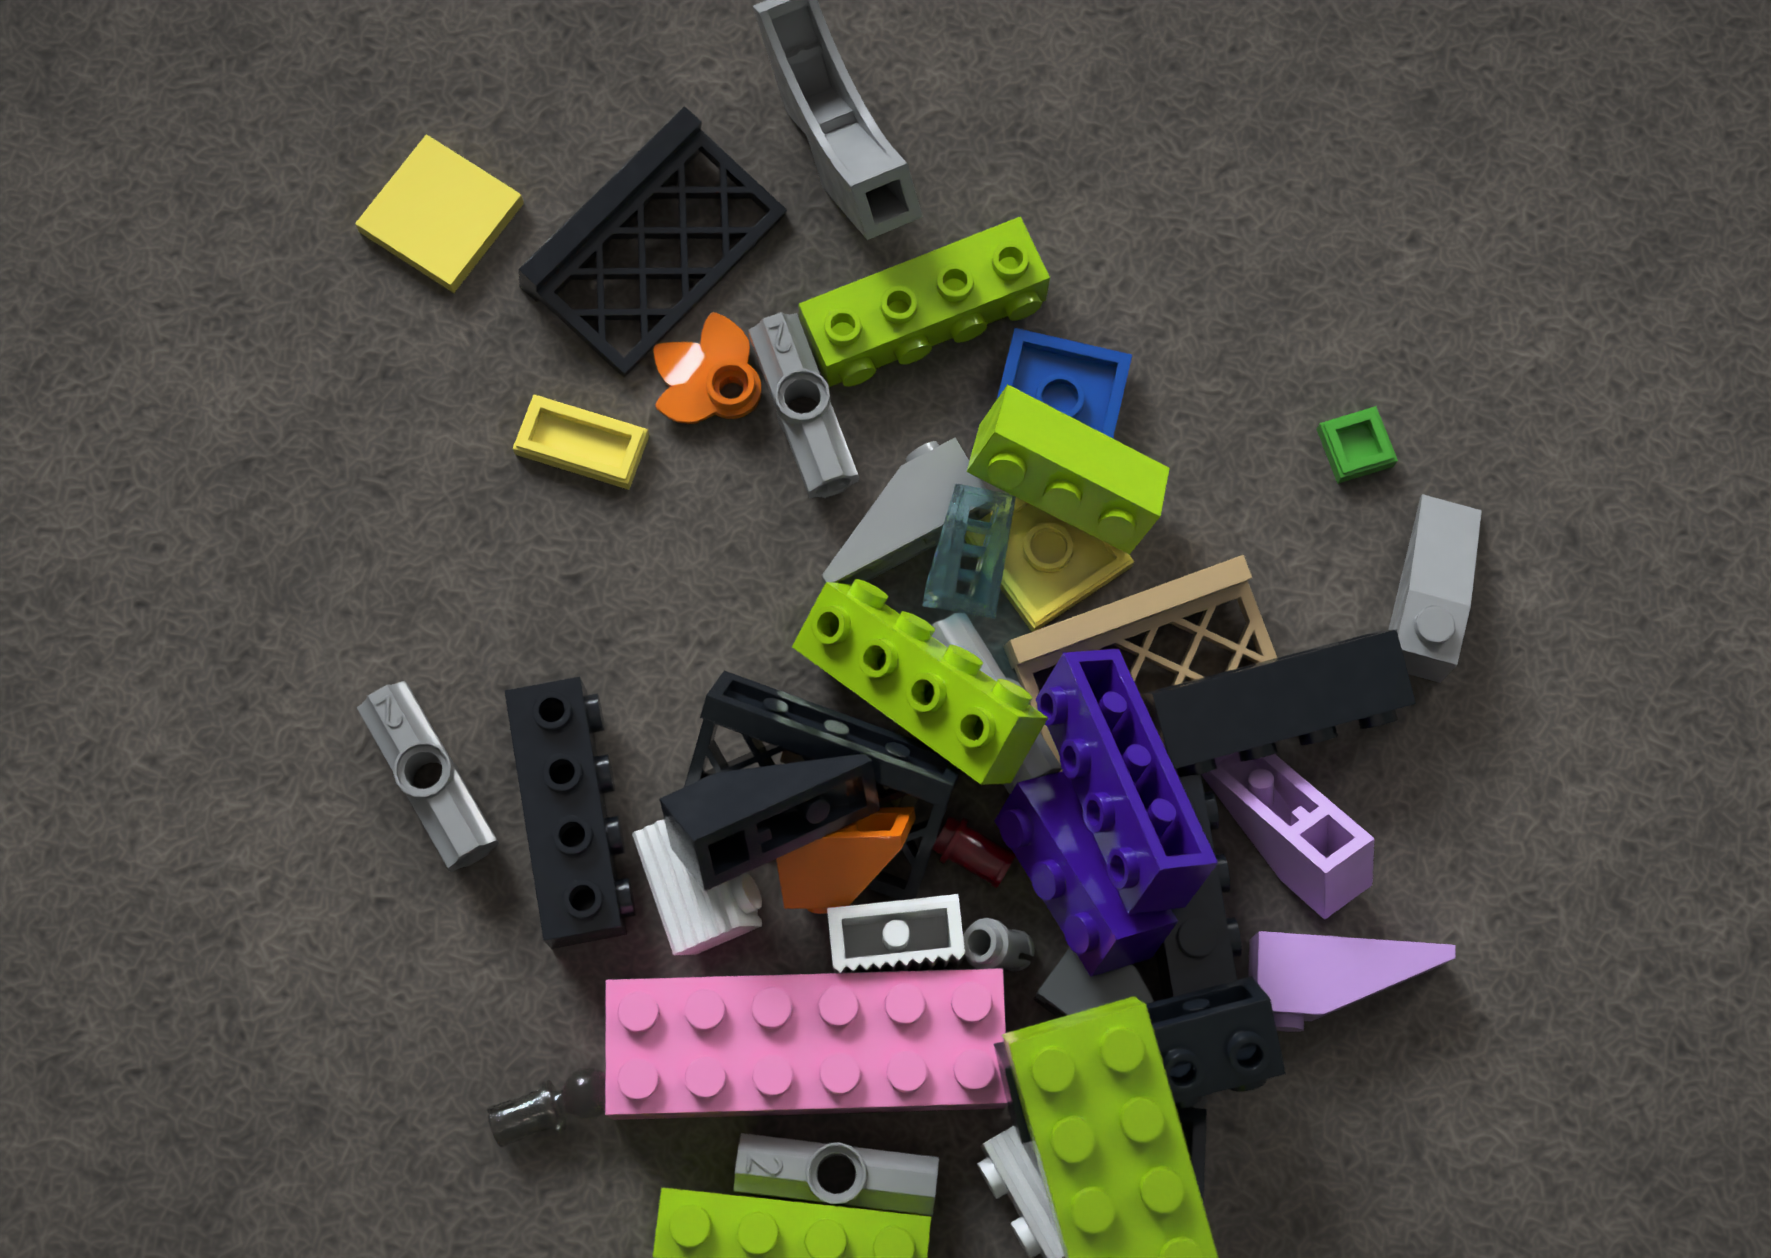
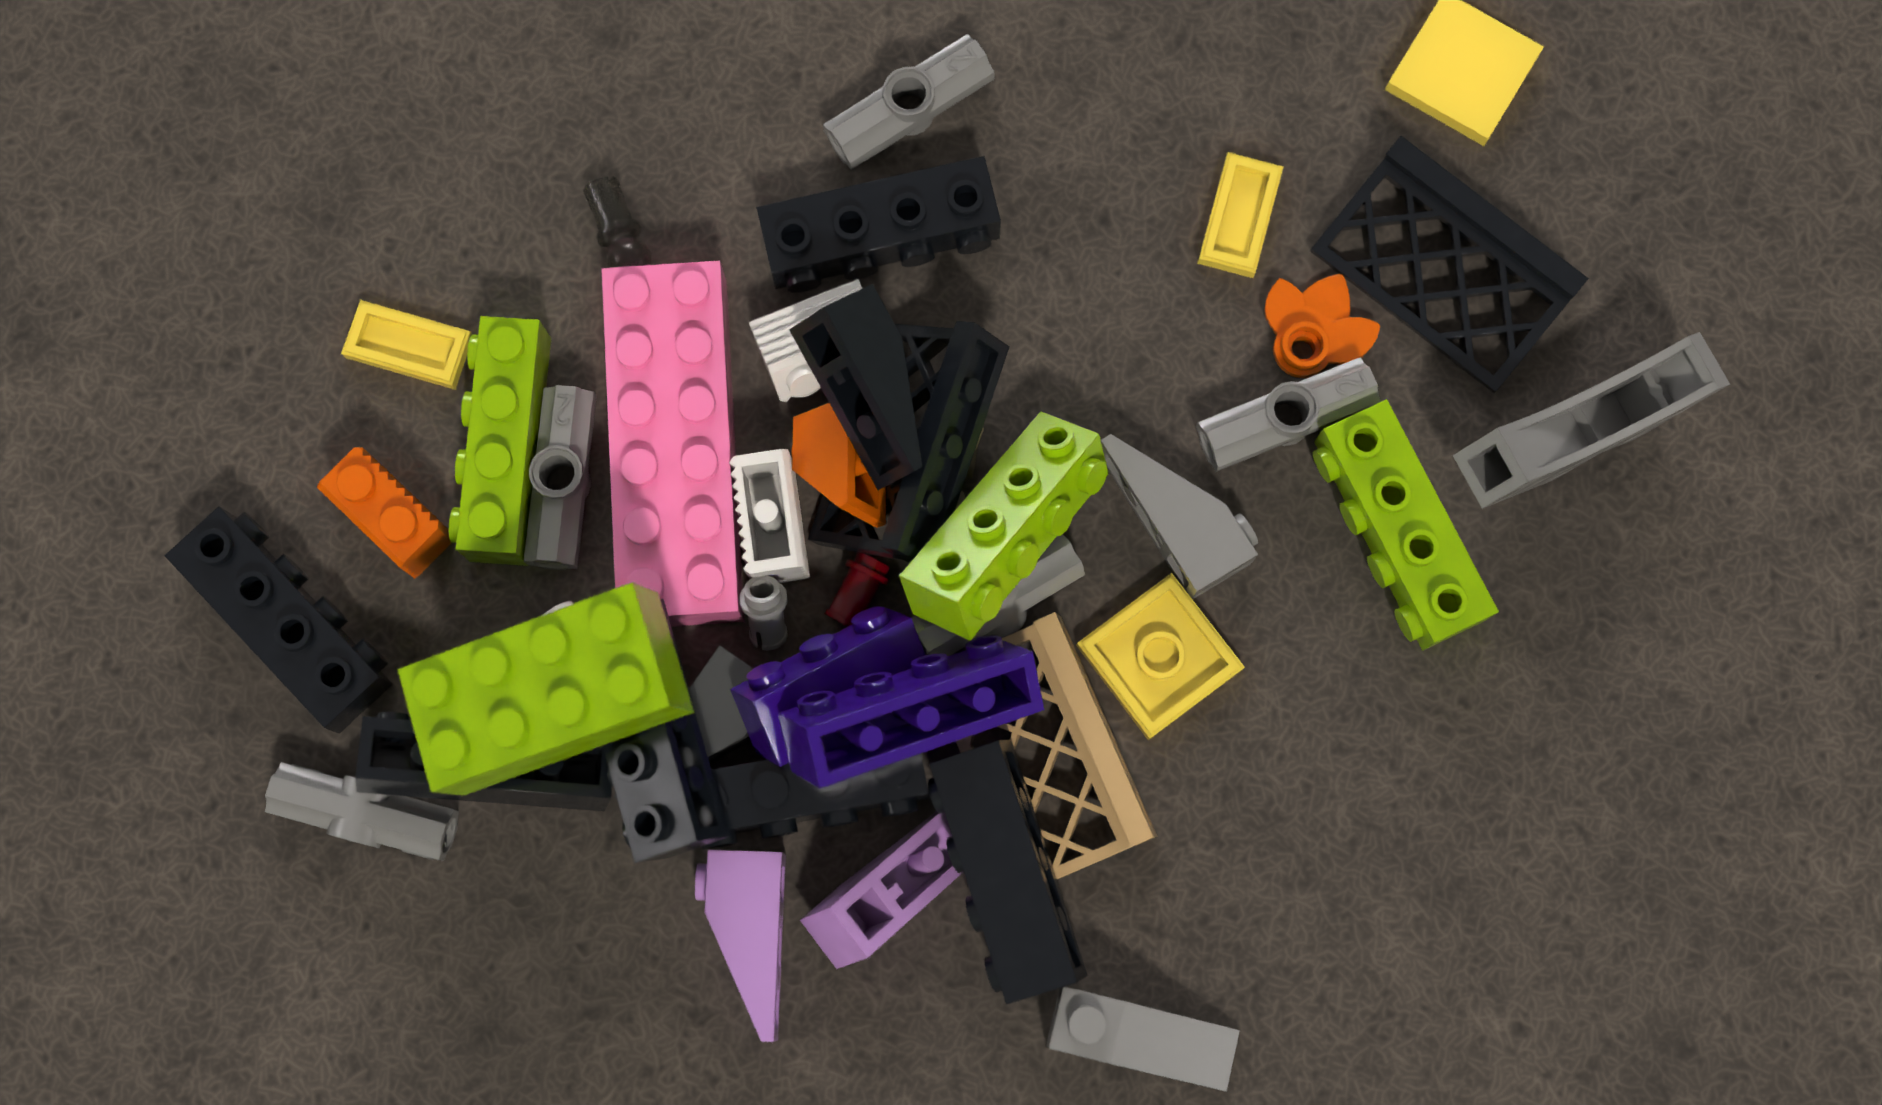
camera: 90 degrees right, 5 degrees up
(945, 568) = (1098, 590): clear light blue slope -> none
(1068, 470) = (1229, 664): lime brick -> none
(1069, 377) = (1312, 662): blue plate -> none
(1357, 444) = (1288, 964): bright green tile -> none

